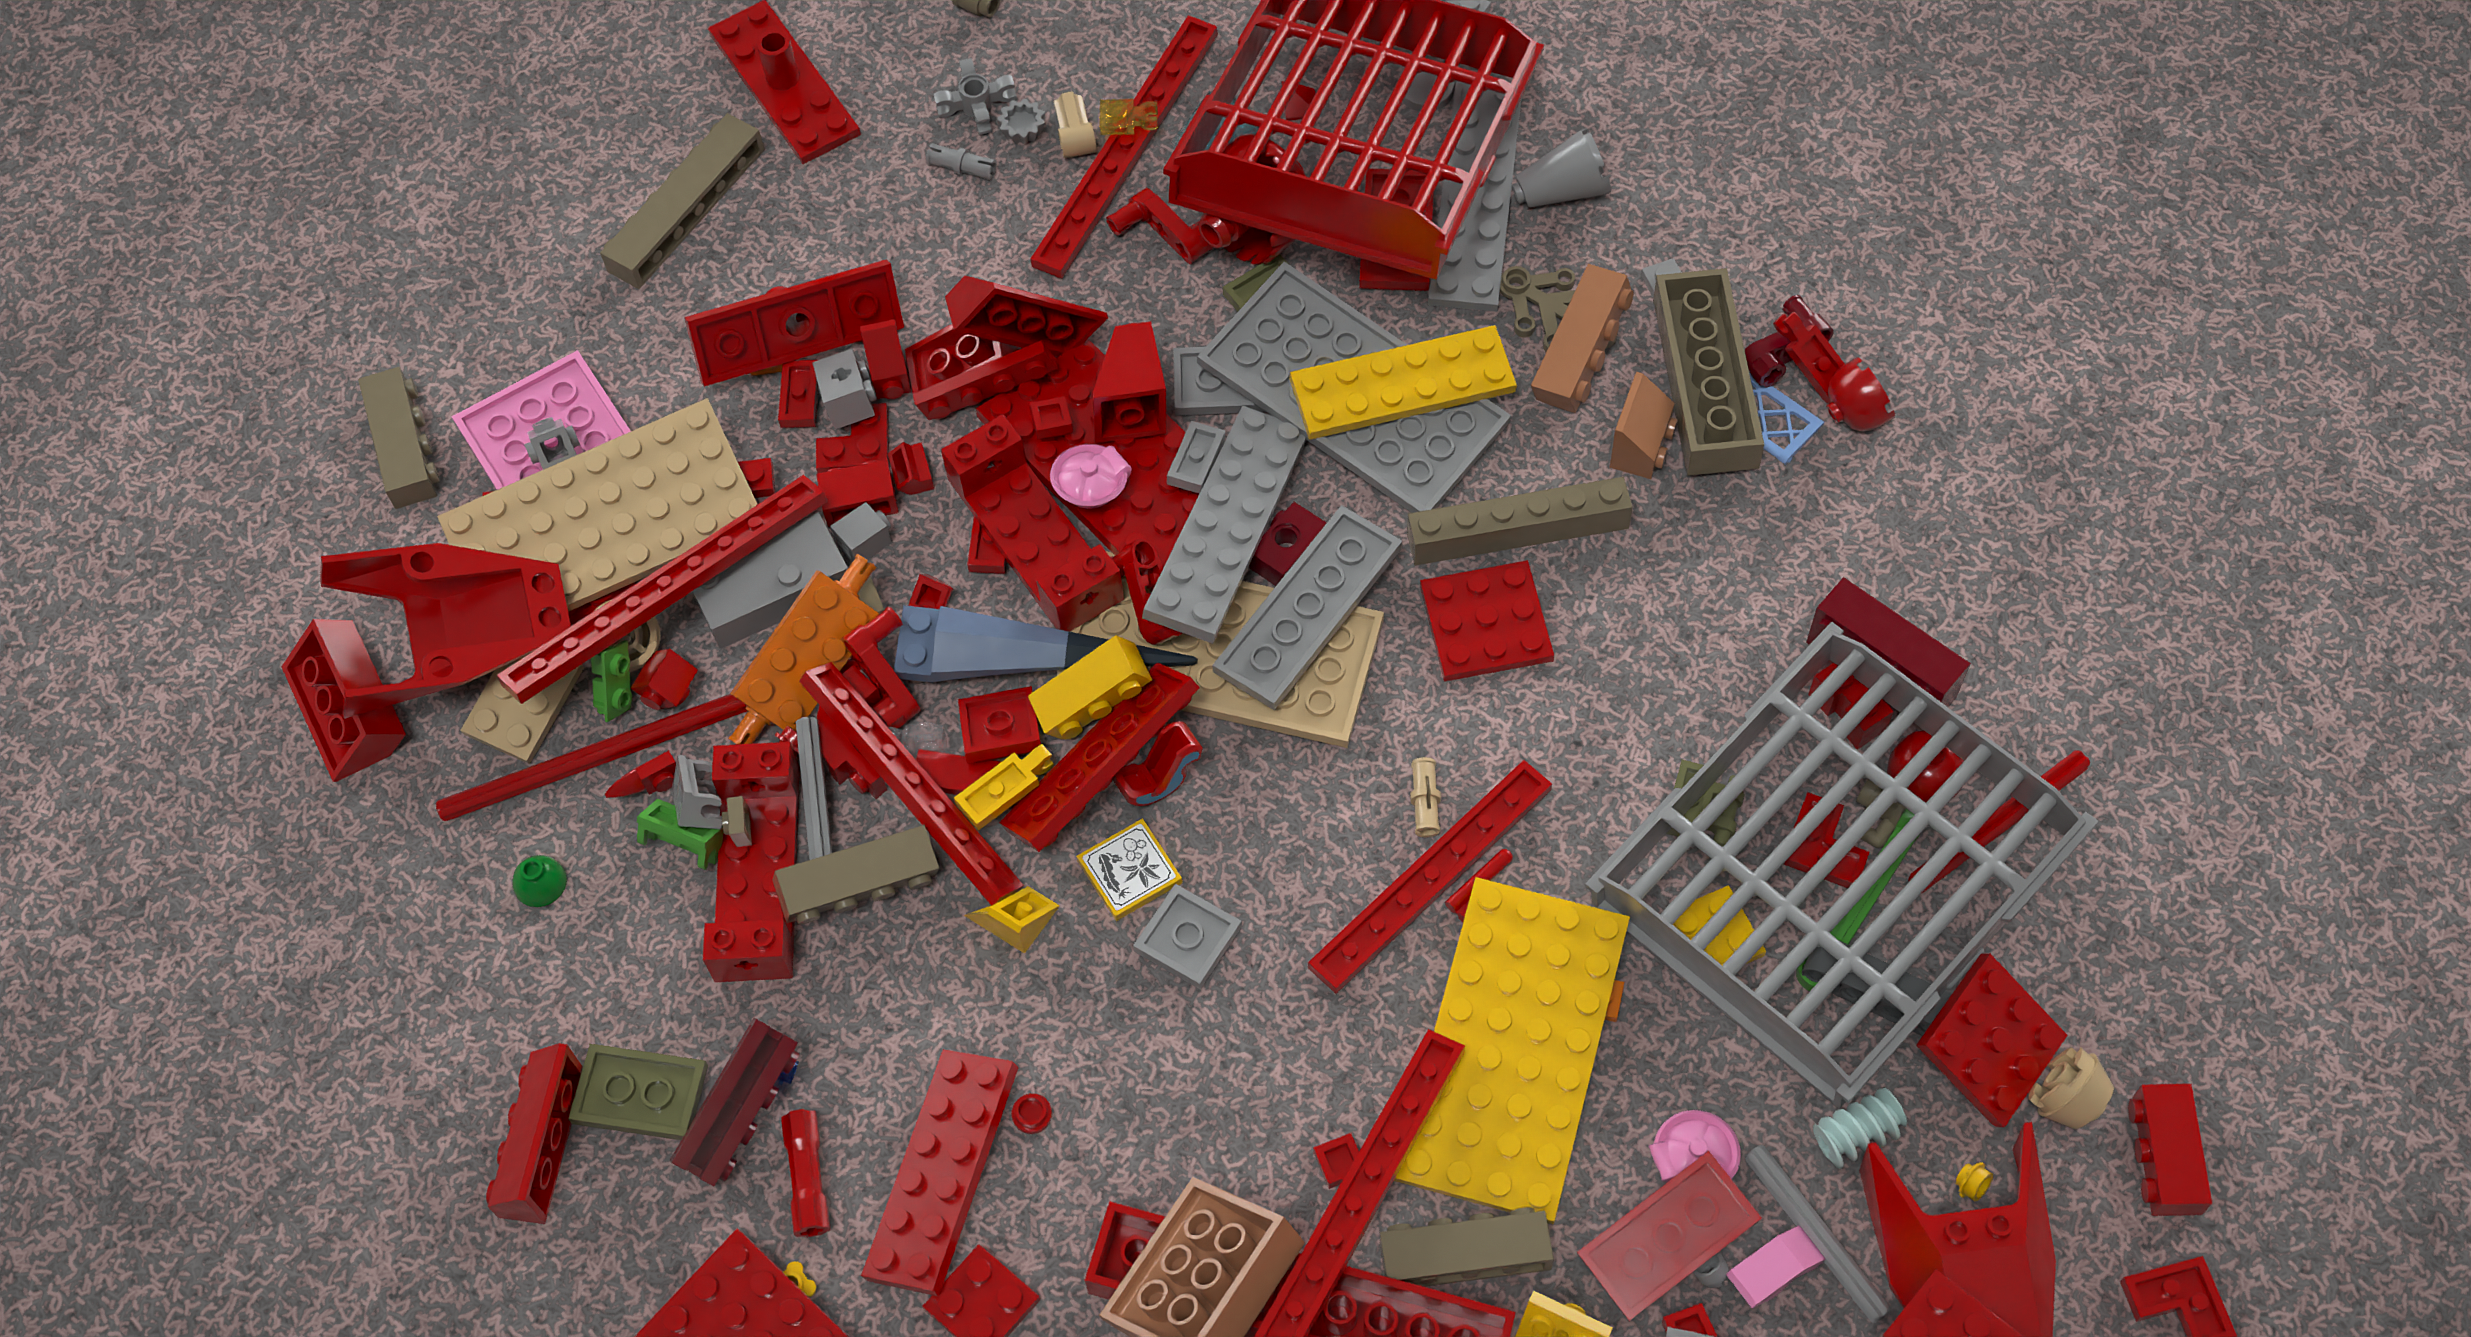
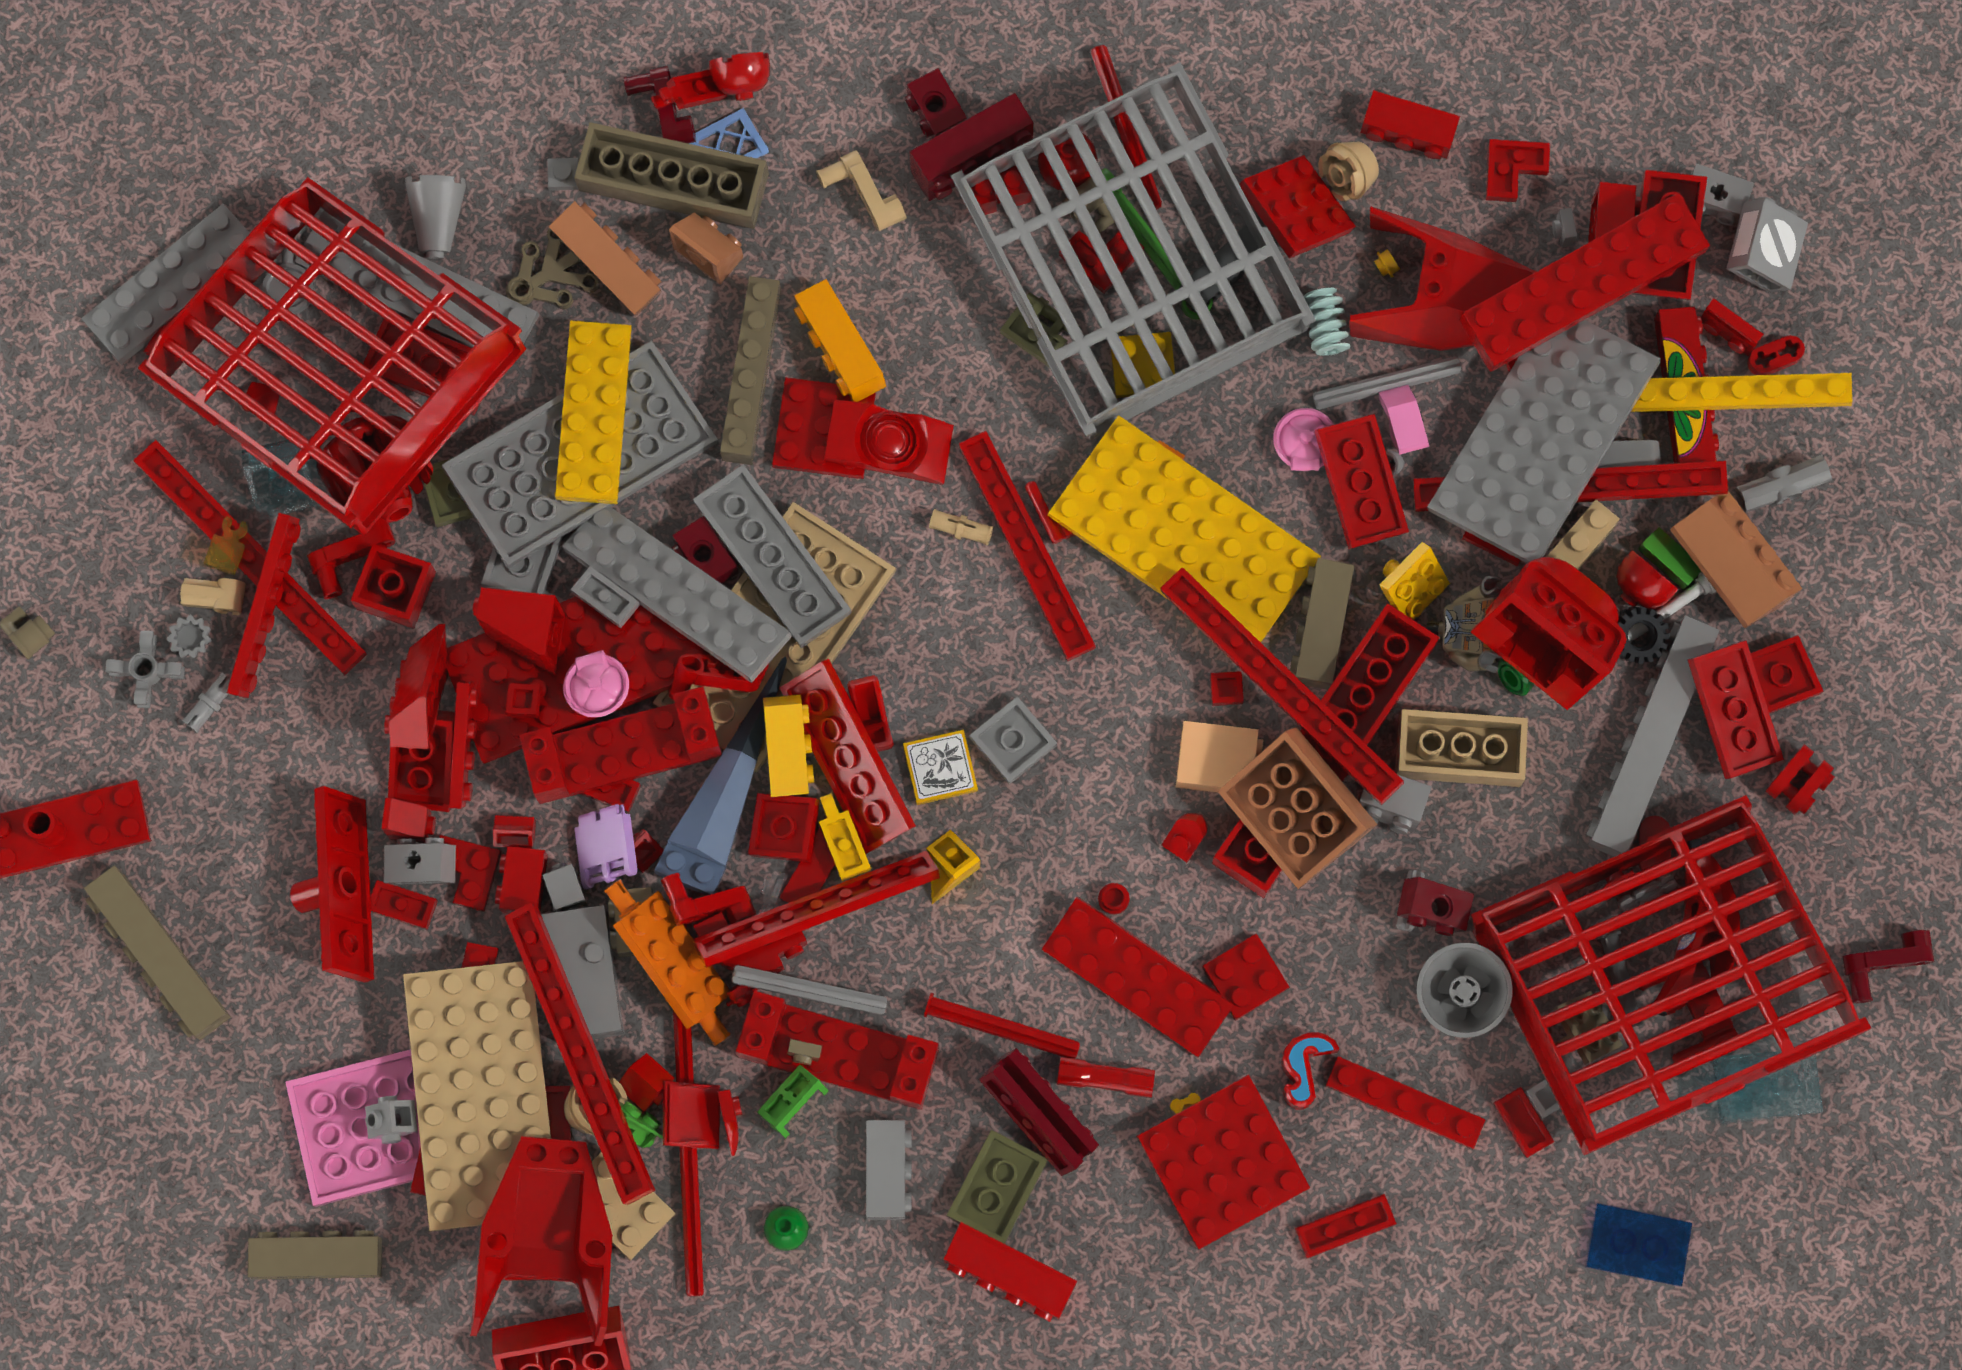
camera: 75 degrees left, 15 degrees up
(627, 962) = (887, 1169): none -> light grey brick
(637, 733) = (691, 1115): none -> red piece
(693, 798) = (766, 1082): light grey hinge -> none
(834, 1035) = (1001, 1027): none -> red axle
(856, 874) = (880, 972): dark tan brick -> none
(919, 554) = (604, 845): none -> lavender plate
(1072, 162) = (261, 614): none -> red plate
(1137, 1171) = (1186, 835): none -> red plate
(1138, 269) = (393, 586): none -> red brick
(1248, 1163) = (1214, 754): none -> light nougat brick
(1495, 687) = (888, 441): none -> red slope
(1589, 594) = (839, 341): none -> light orange brick
(1768, 591) = (882, 212): none -> tan beam
(1932, 590) = (934, 90): none -> dark red brick

